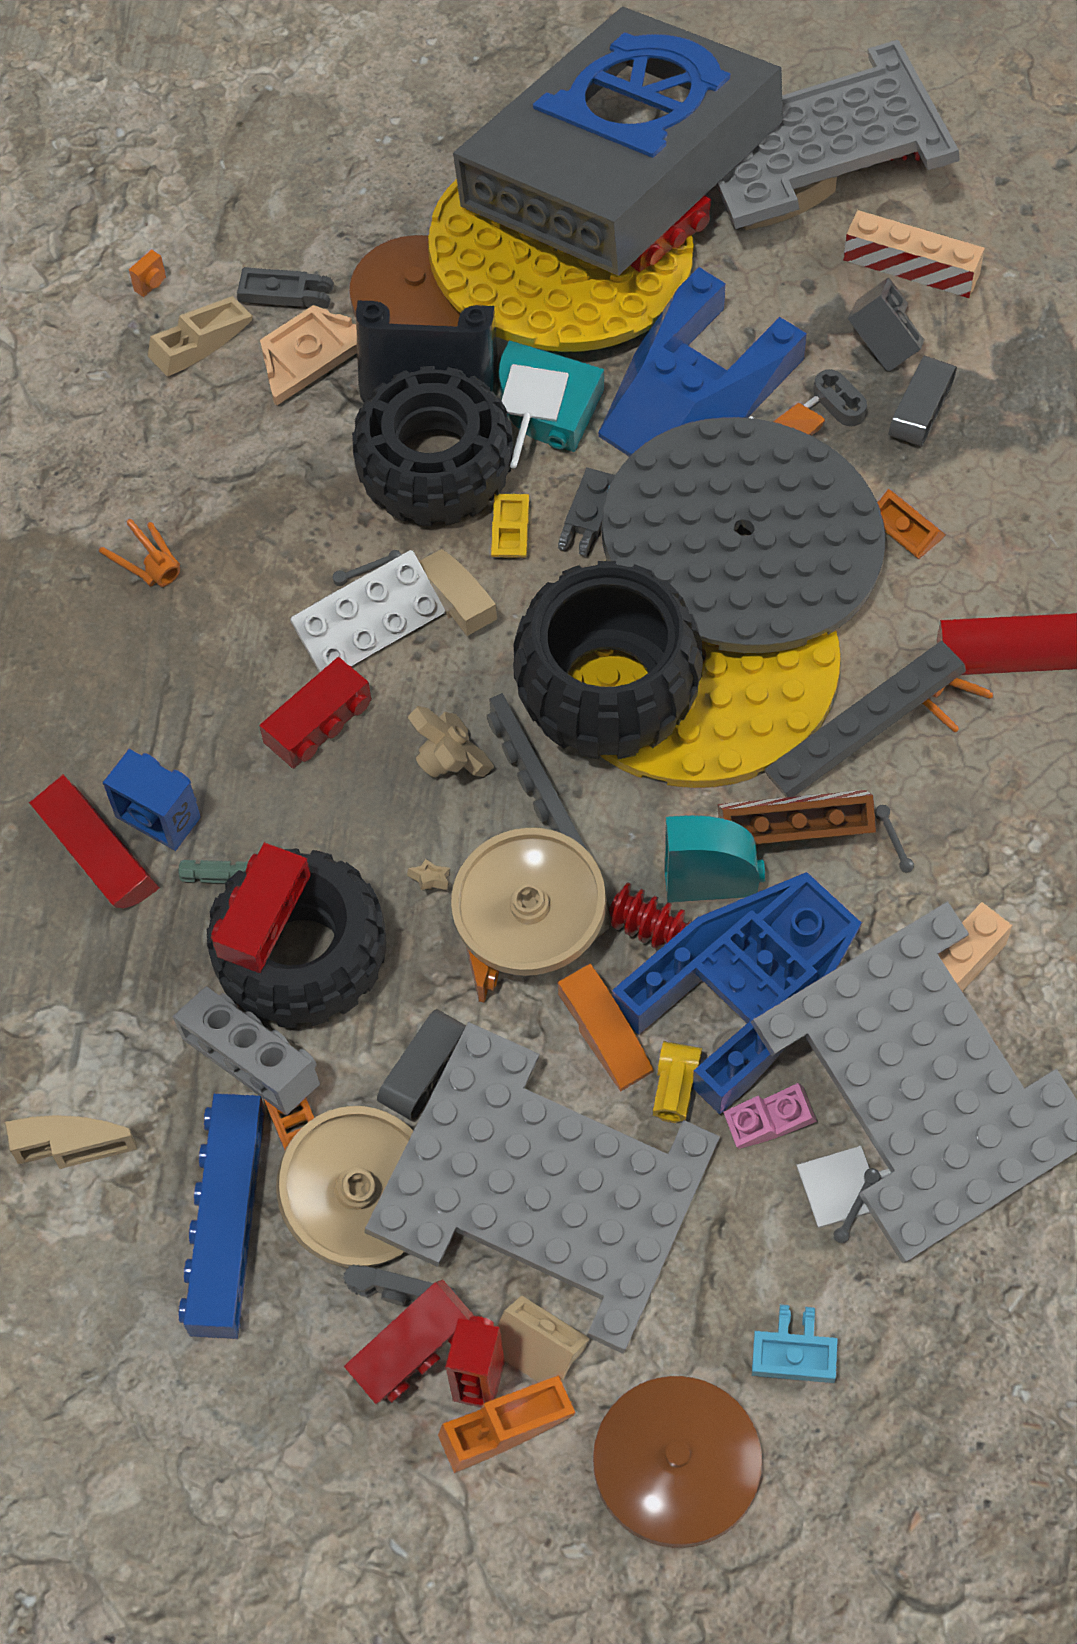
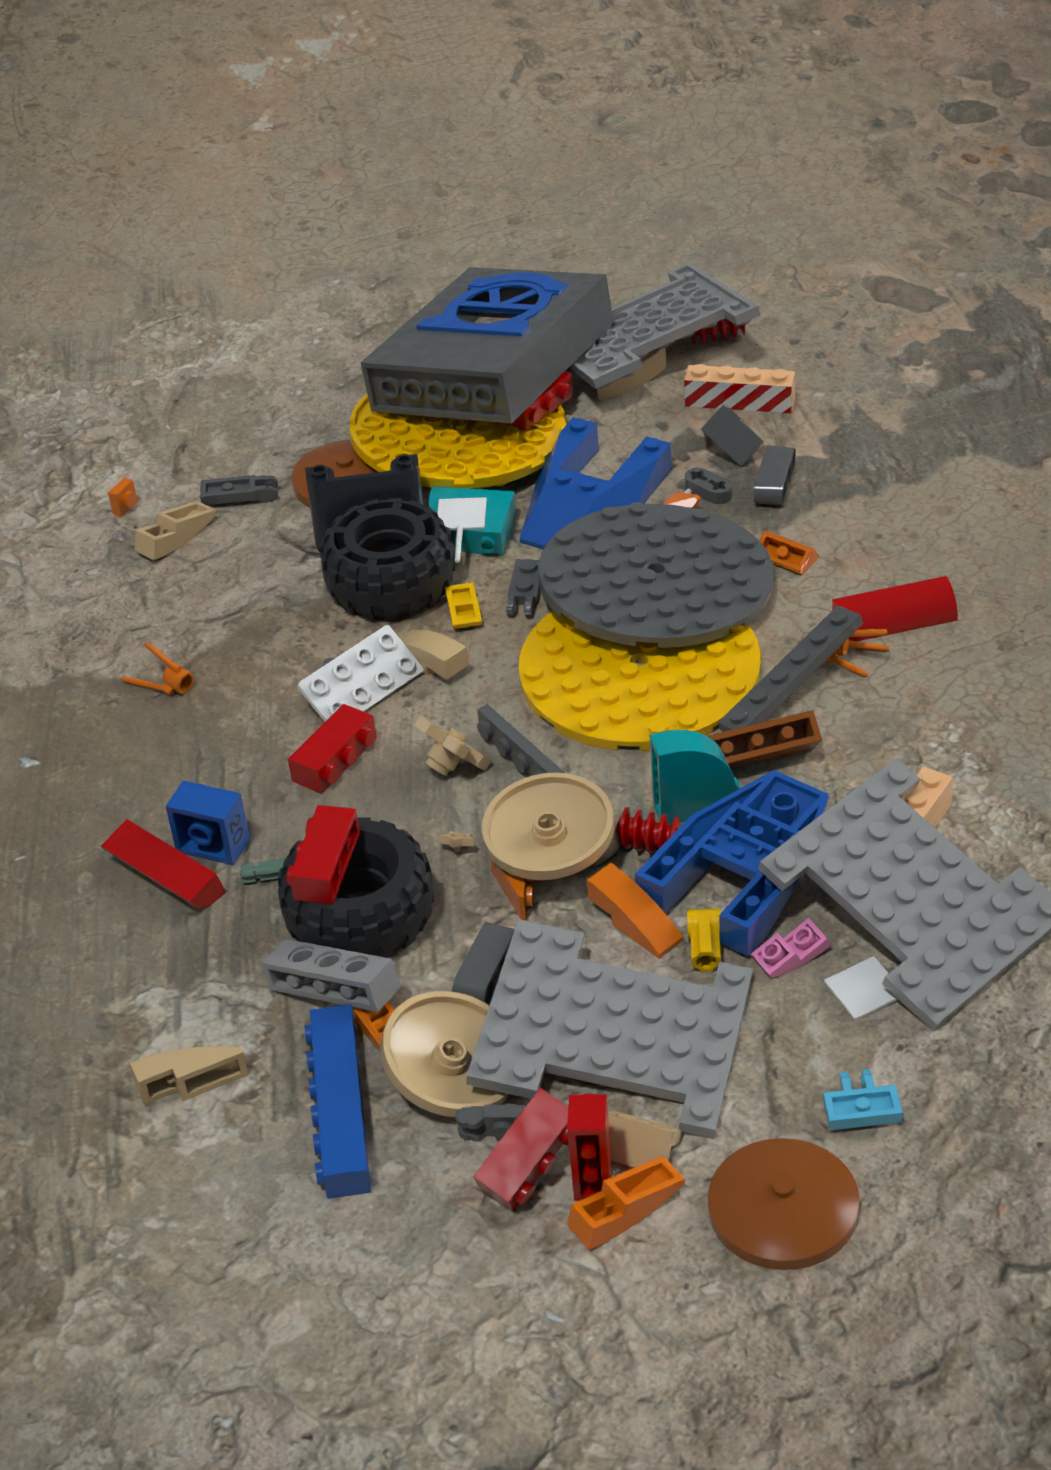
camera: 10 degrees left, 20 degrees down
(306, 350) = (267, 524): light nougat wing -> none
(599, 611) = (571, 654): black tyre -> none
(841, 1234) = (877, 1018): dark grey hinge -> none
(882, 814) = (852, 765): dark grey hinge -> none

